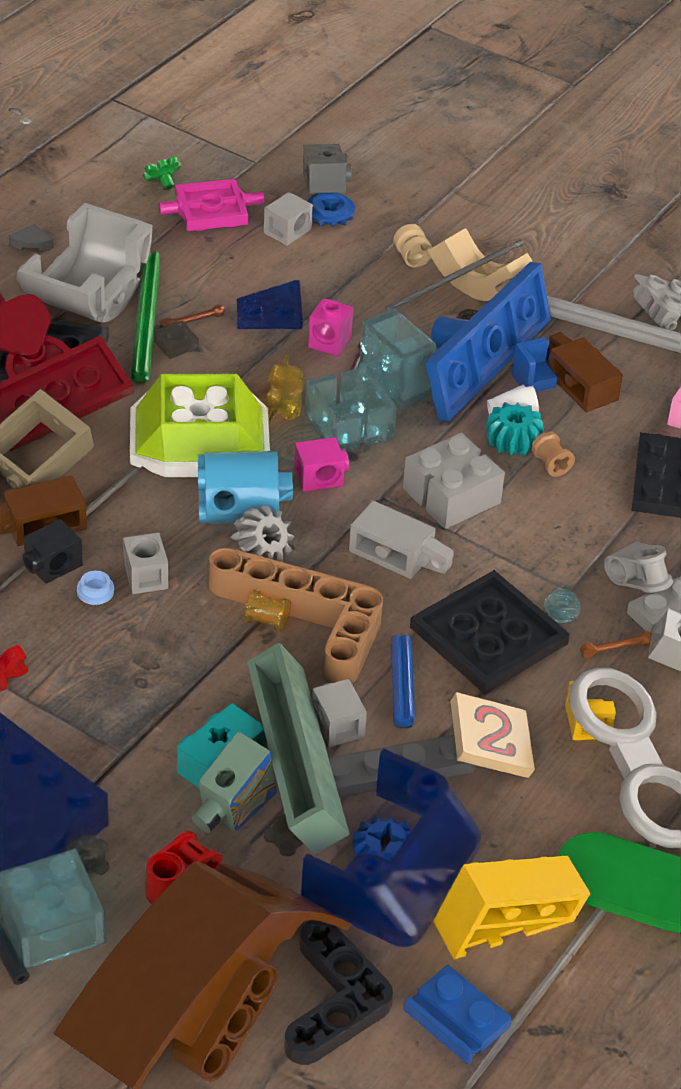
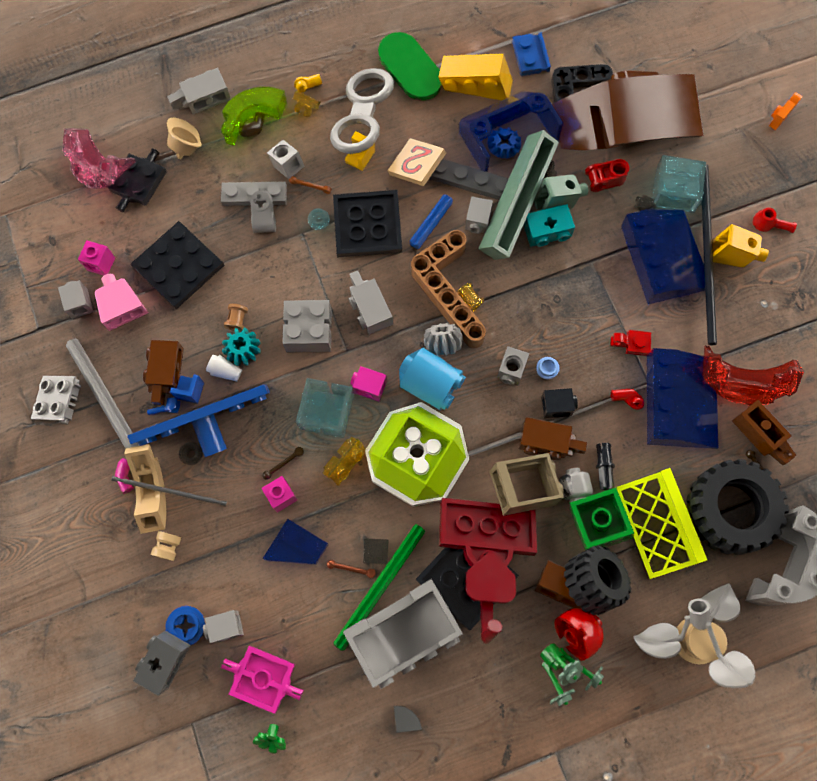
camera: 140 degrees left, 30 degrees up
(397, 356) = (268, 430): clear light blue brick -> none

